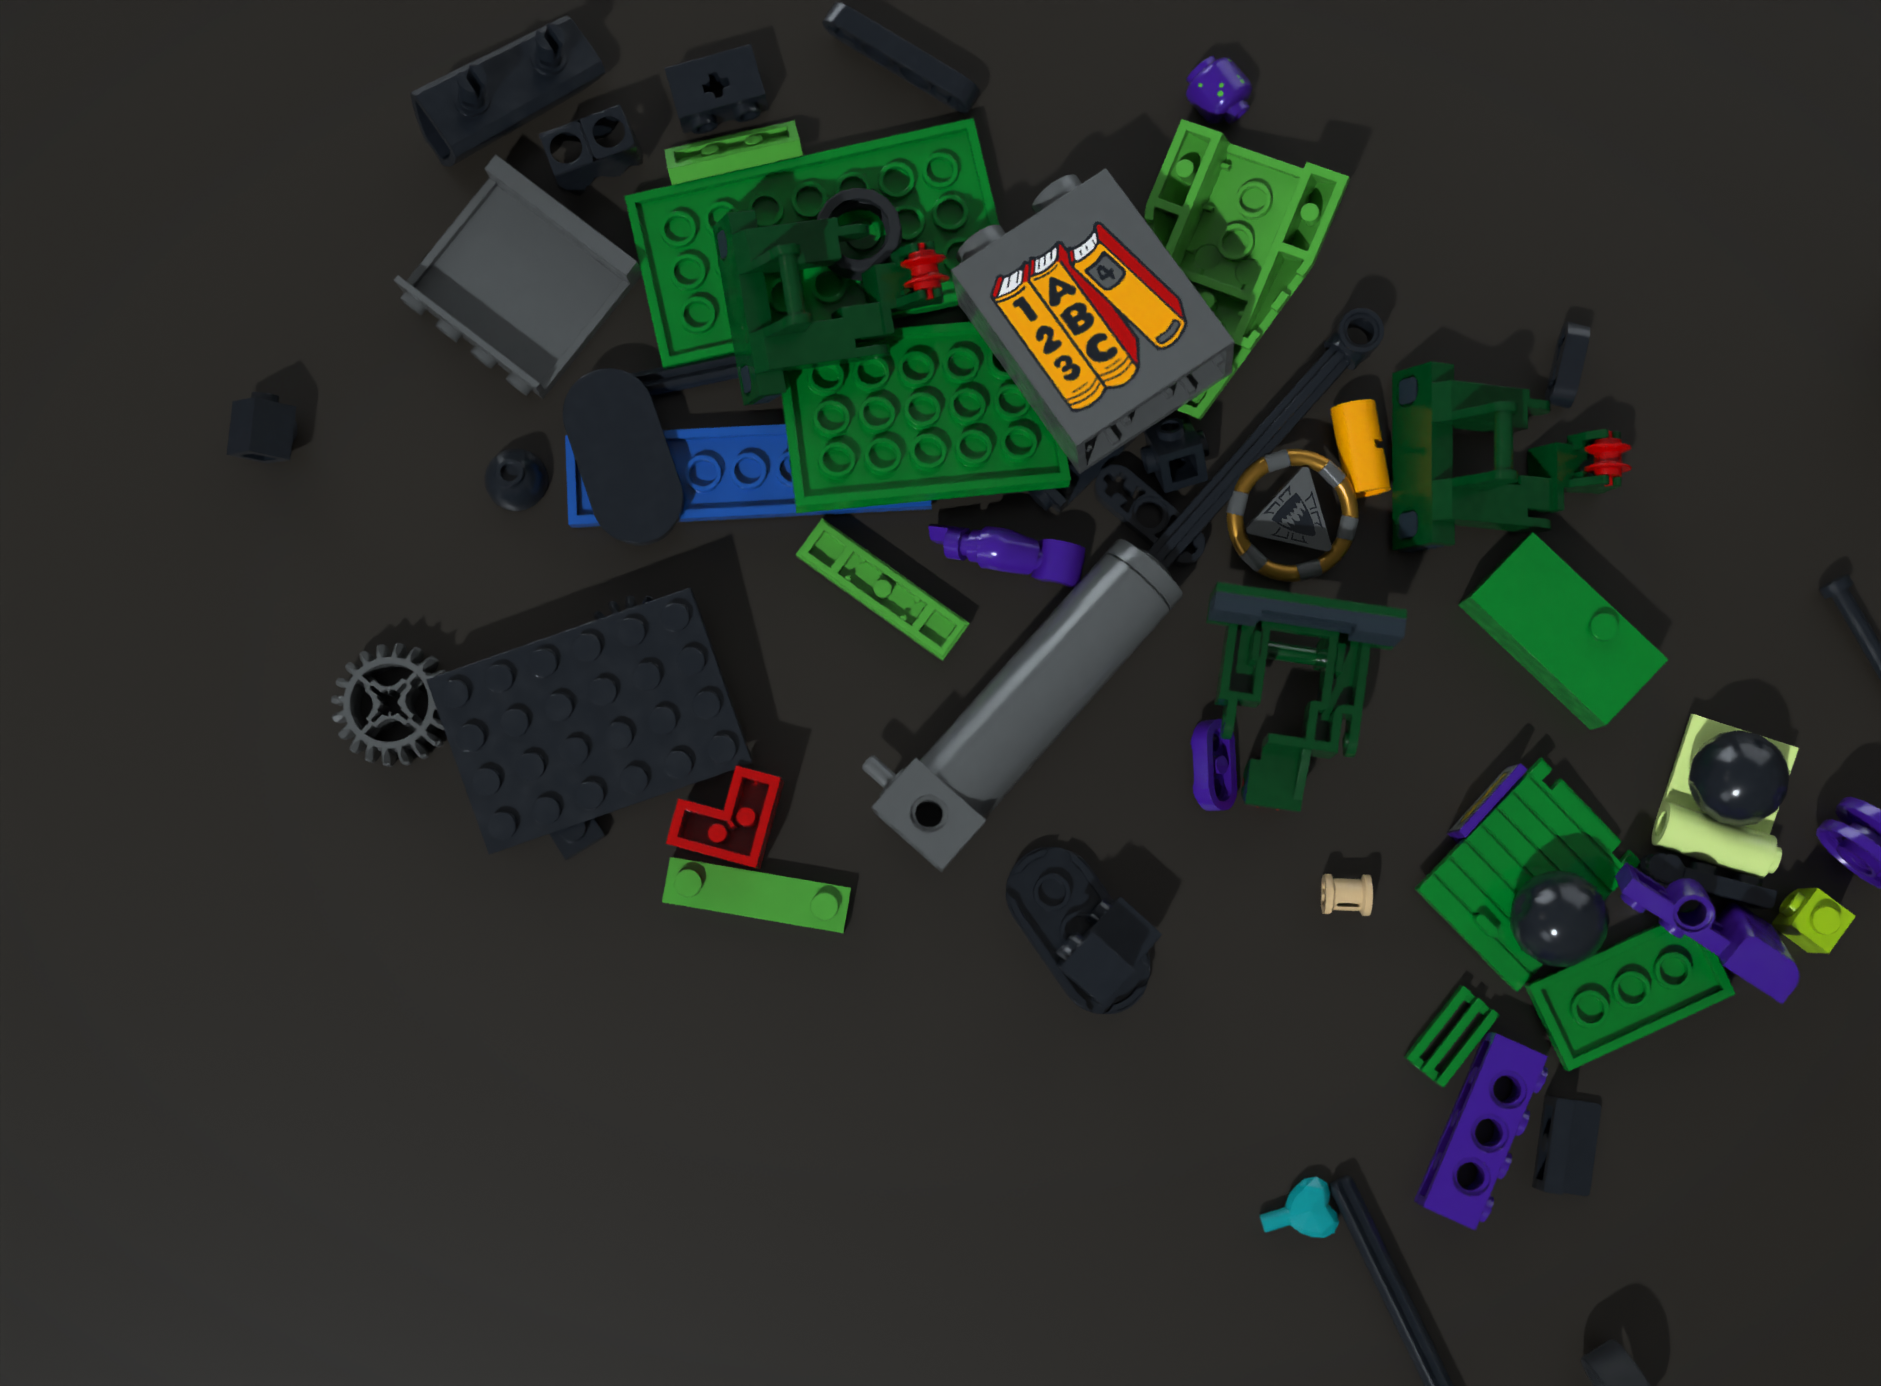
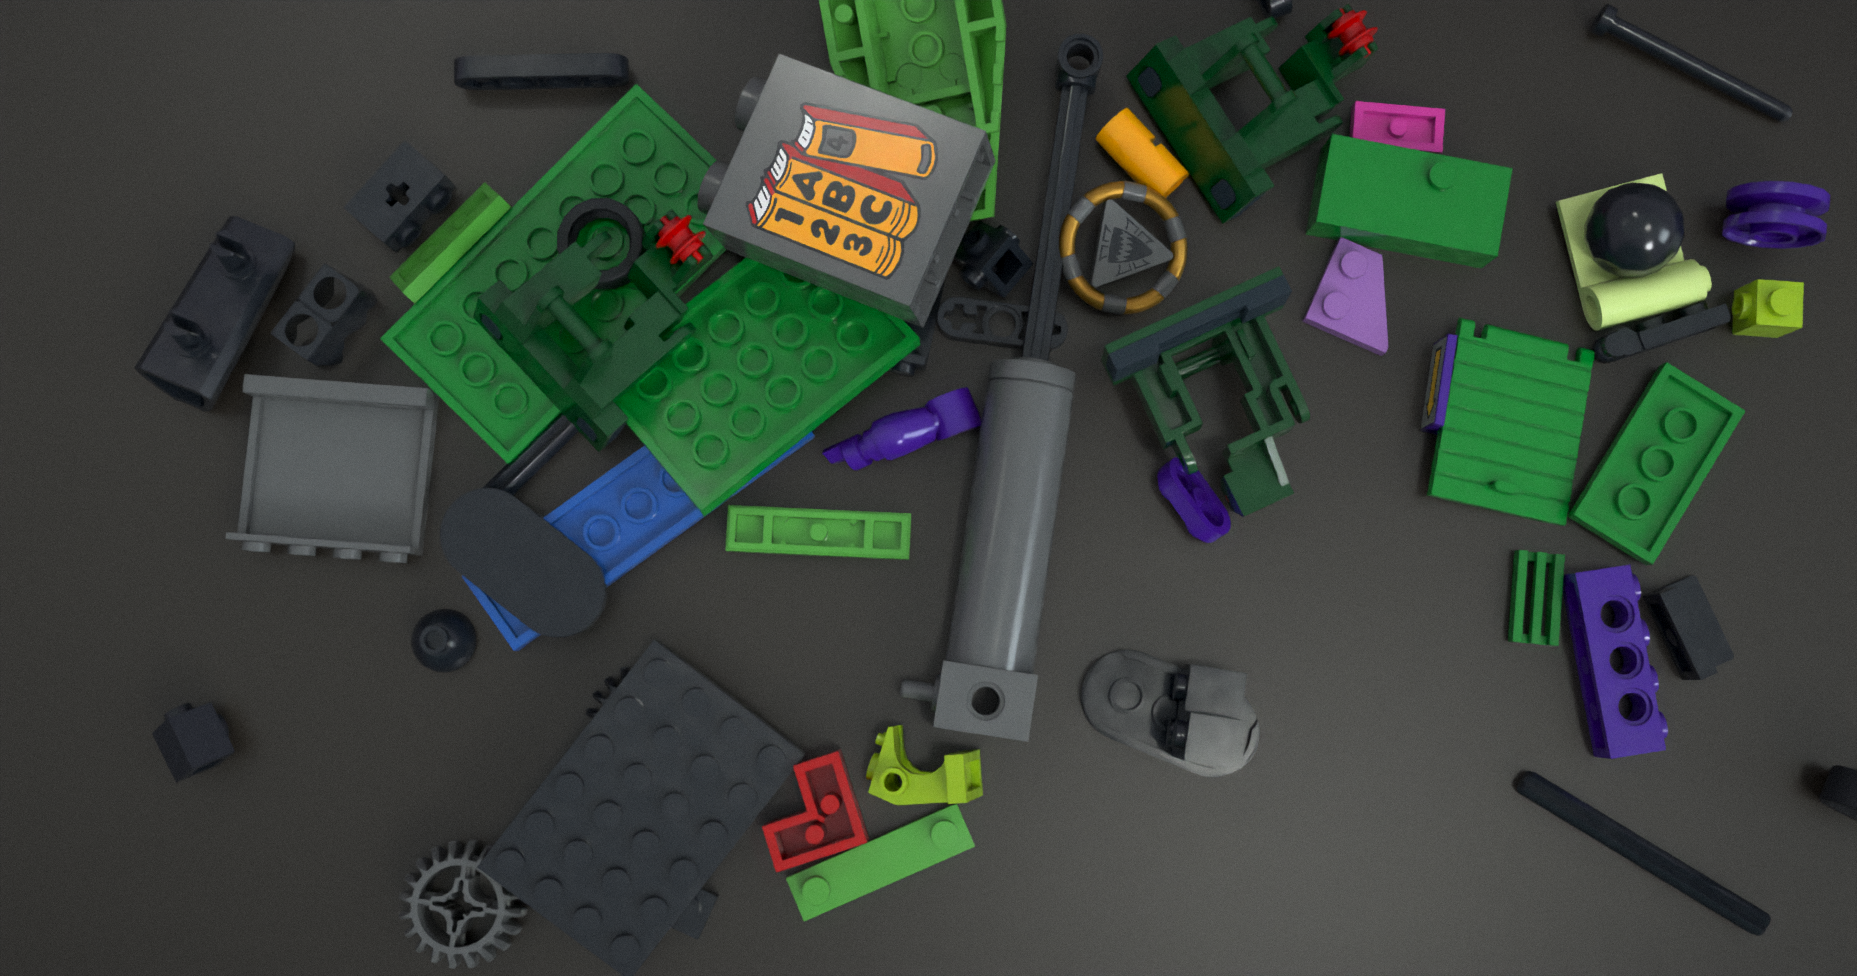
camera: 30 degrees left, 0 degrees up
(862, 864) = (954, 782): none -> lime tile
(1305, 1210) = (1511, 825): teal rock -> none
(1346, 894) = (1374, 536): tan bush -> none
(1461, 683) = (1352, 298): none -> medium lavender wing
(1559, 919) = (1565, 443): black piece -> none
(1597, 563) = (1399, 125): none -> dark pink plate
(1736, 935) = (1711, 362): dark purple plate -> none

